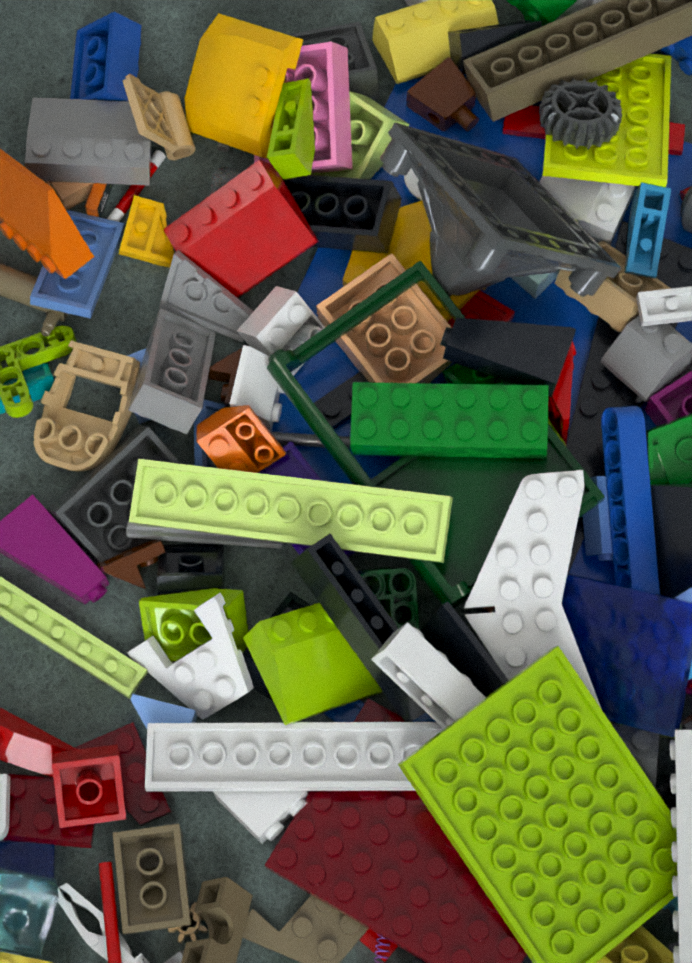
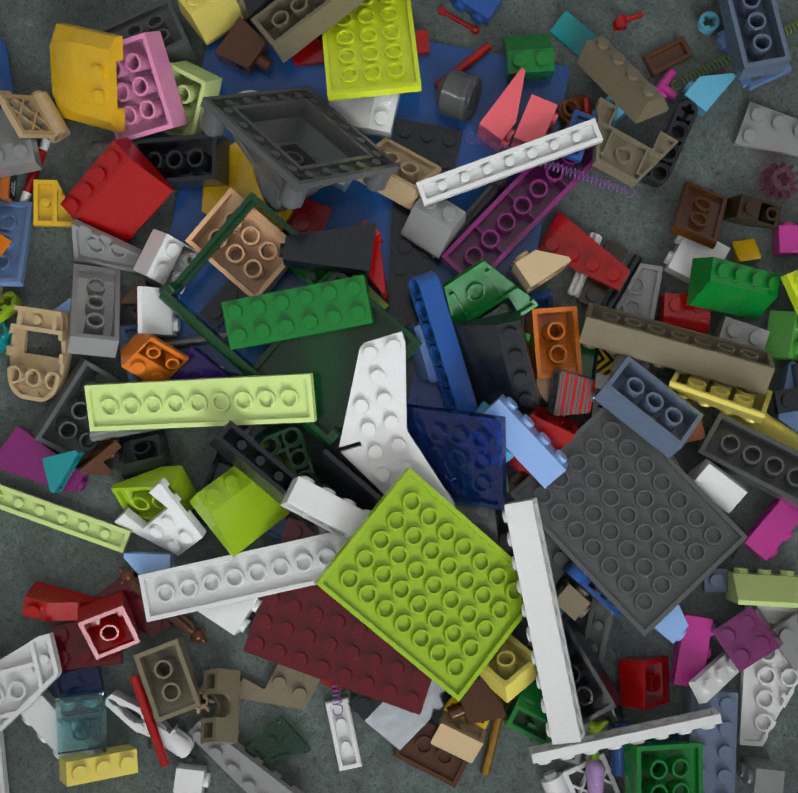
camera: 10 degrees left, 15 degrees up
(80, 556) = (60, 468): none -> teal slope
(178, 800) = (181, 621): none -> reddish brown wheel
(292, 134) = (135, 113): lime slope -> none
(580, 113) = (348, 51): dark grey gear -> none
(646, 229) = (414, 125): dark azure slope -> none

